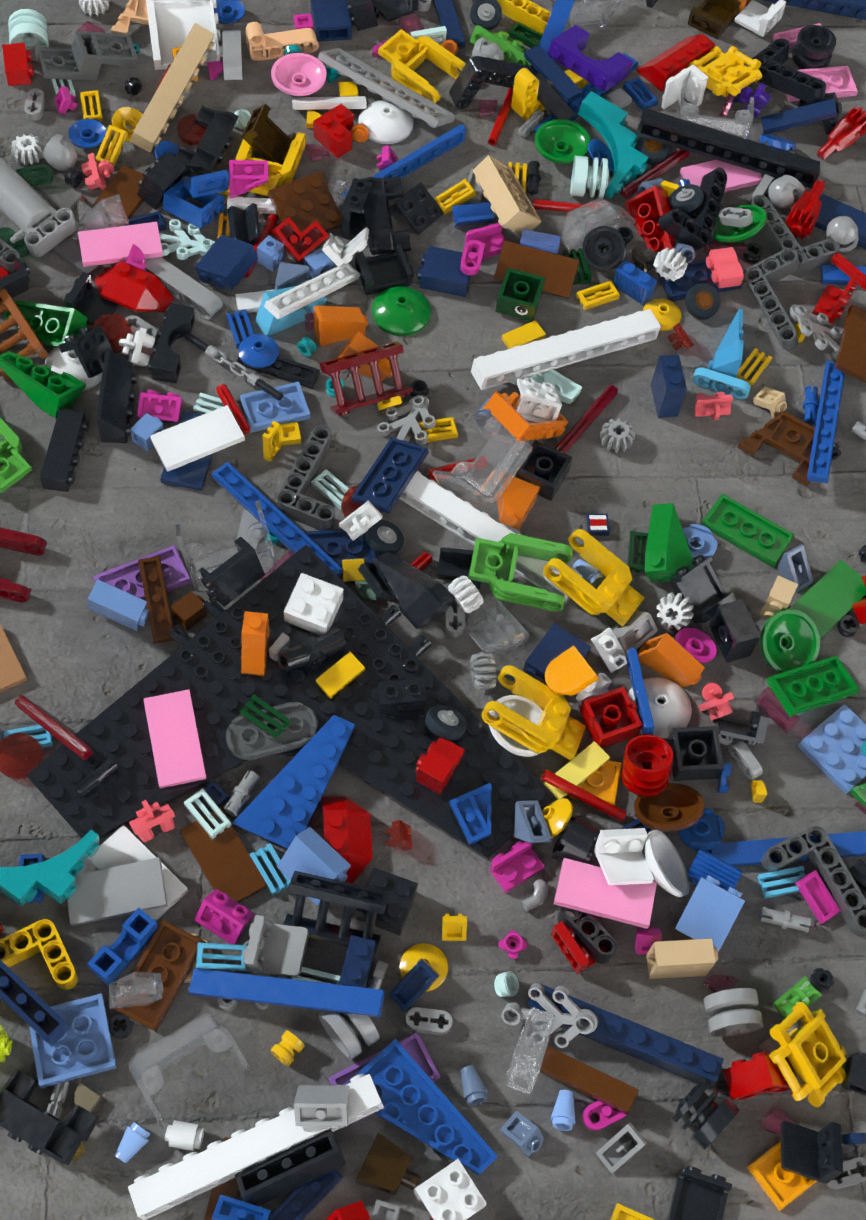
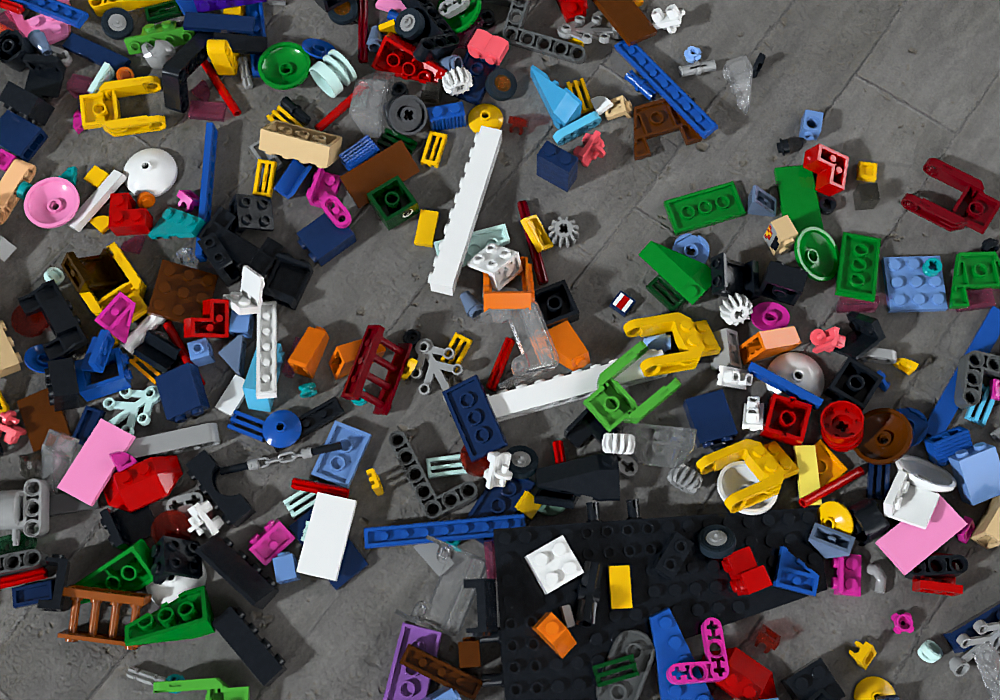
camera: 40 degrees left, 10 degrees up
(290, 434) = (372, 460): yellow tile -> none
(331, 791) = (706, 666): none -> dark pink beam
(359, 164) = (176, 223): none -> teal wing
(386, 87) = (121, 148): light grey plate -> none
(401, 311) = (335, 305): green dish -> none
(474, 122) = (207, 111): none -> clear pink tile
(569, 673) = (738, 423): light orange tile -> none
(593, 413) = (537, 233): none -> yellow tile
(611, 124) = (296, 20): teal arch -> none
(760, 385) = (601, 104): none -> white tile

